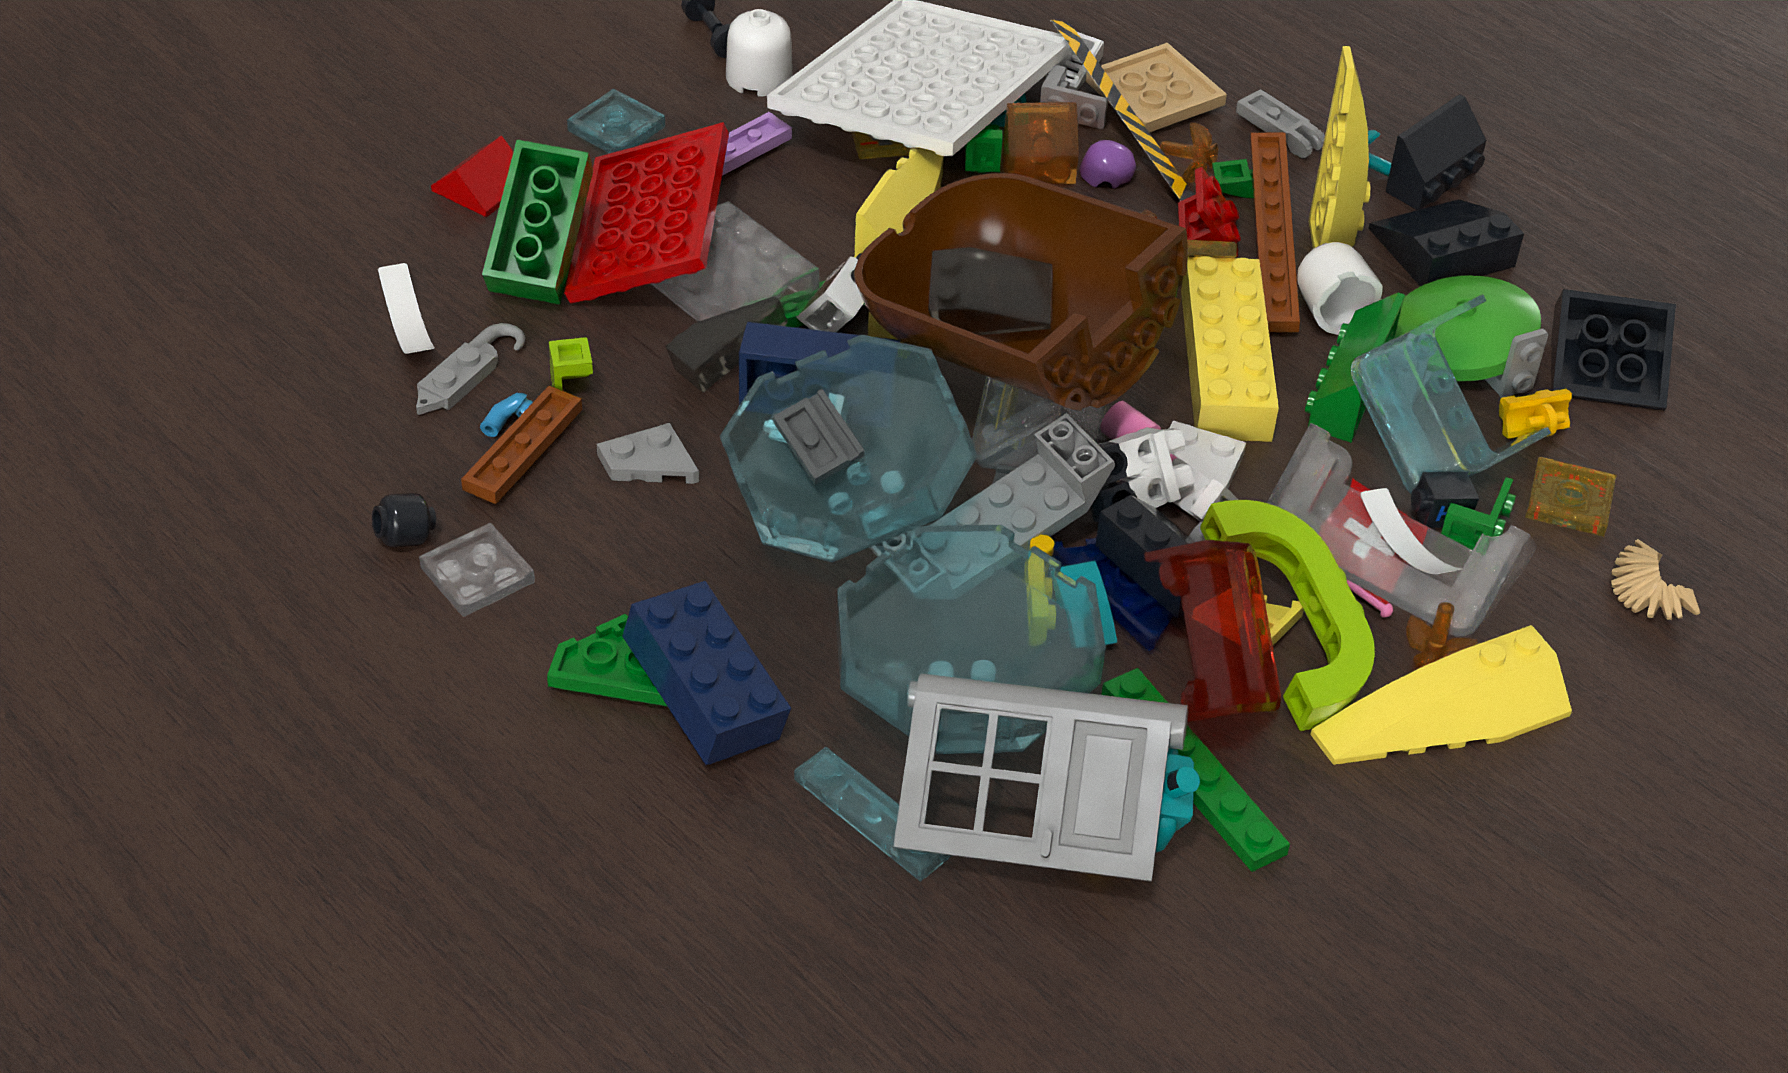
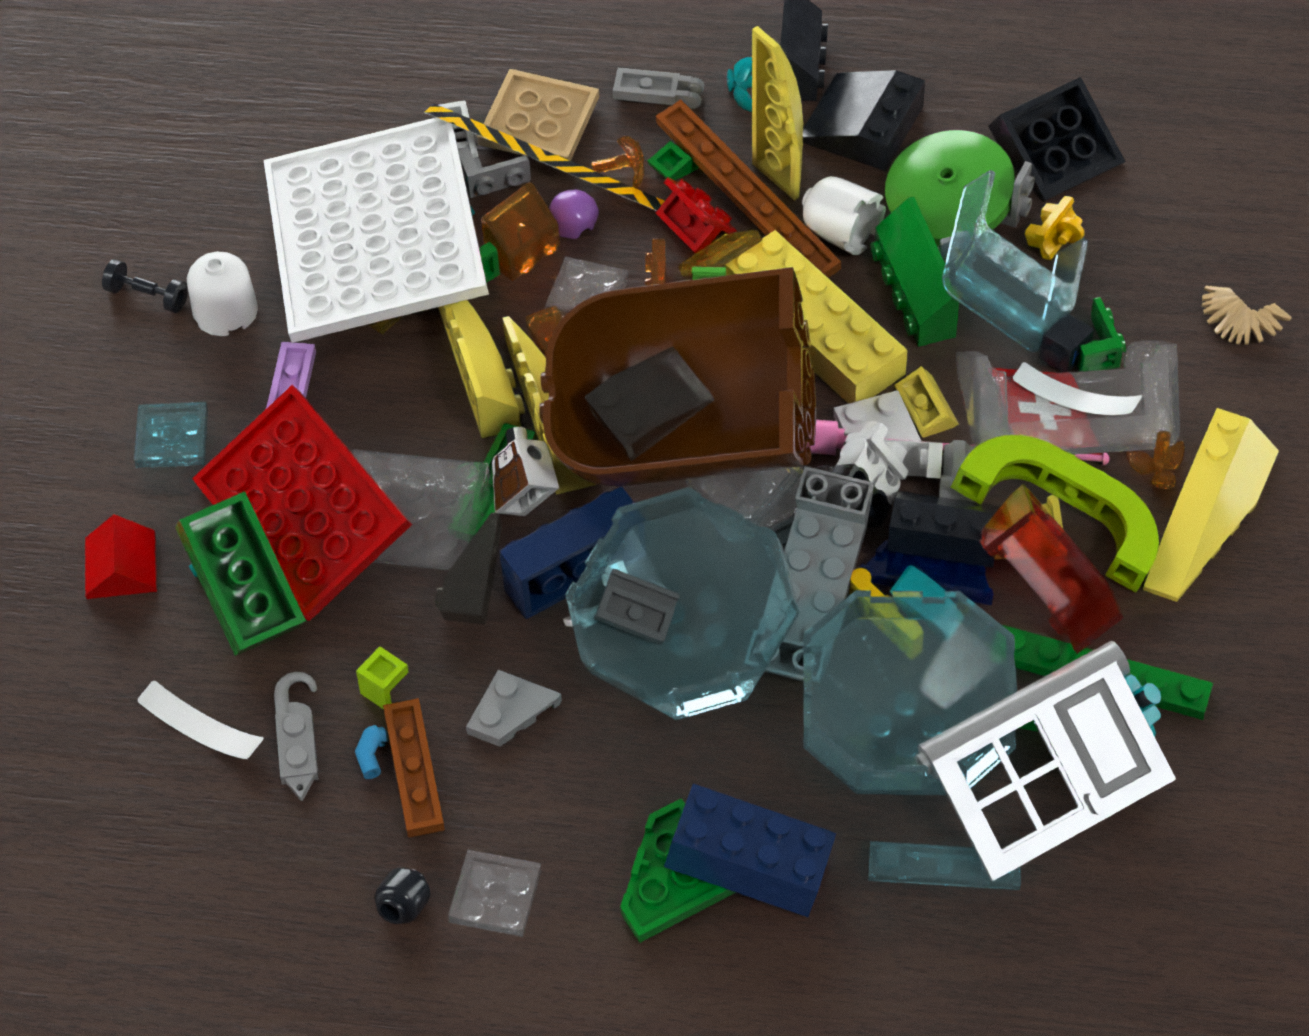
camera: 35 degrees left, 10 degrees up
(1262, 467) = (926, 403): none -> light yellow slope
(1571, 496) = (1131, 279): clear yellow tile -> none

